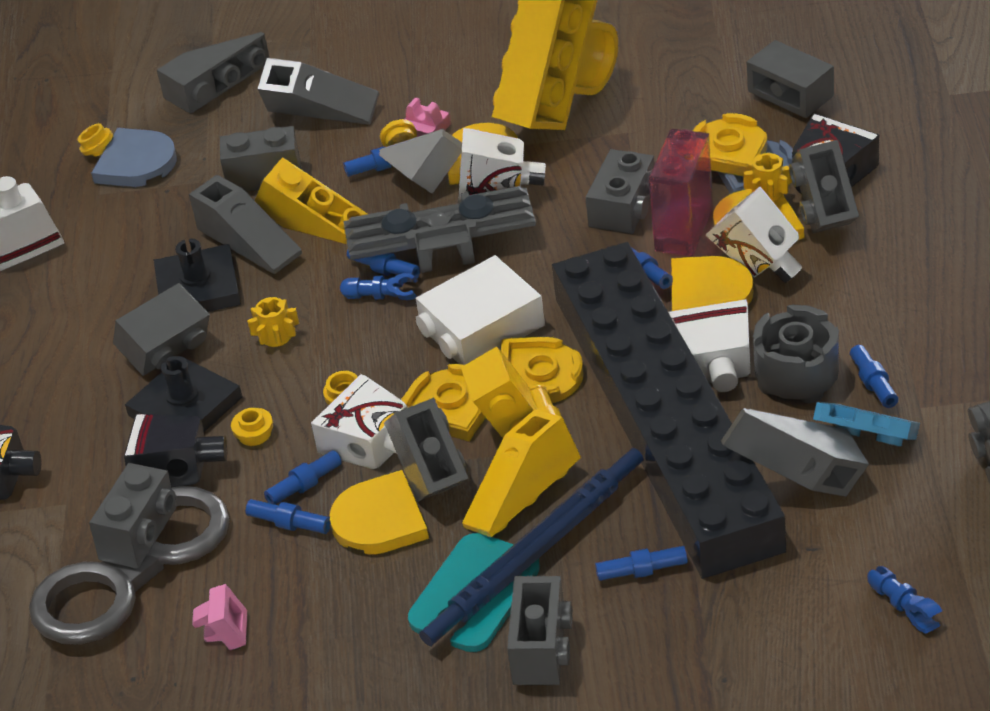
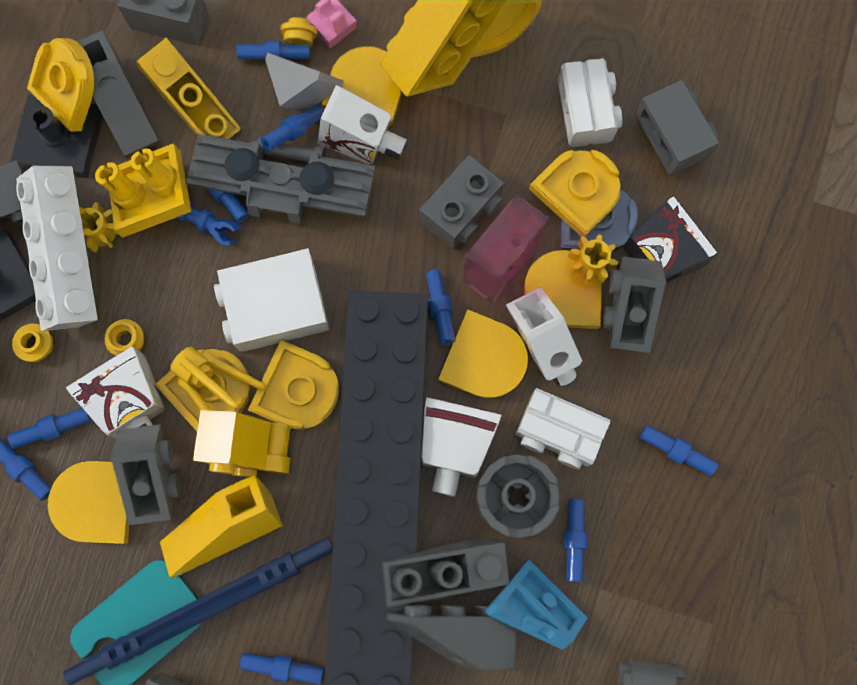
camera: 15 degrees right, 35 degrees up
(196, 212) = (63, 81): none -> yellow tile
(250, 333) = (56, 247): none -> white brick
(312, 274) = (146, 189): none -> yellow plate
(430, 194) = (292, 128): none -> blue bar
(432, 371) = (196, 370): none -> yellow plant
(698, 90) = (588, 102): none -> white brick
(783, 395) = (445, 571): none -> dark grey slope
(820, 289) = (561, 429): none -> white brick
(931, 284) = (678, 450): none -> blue bar

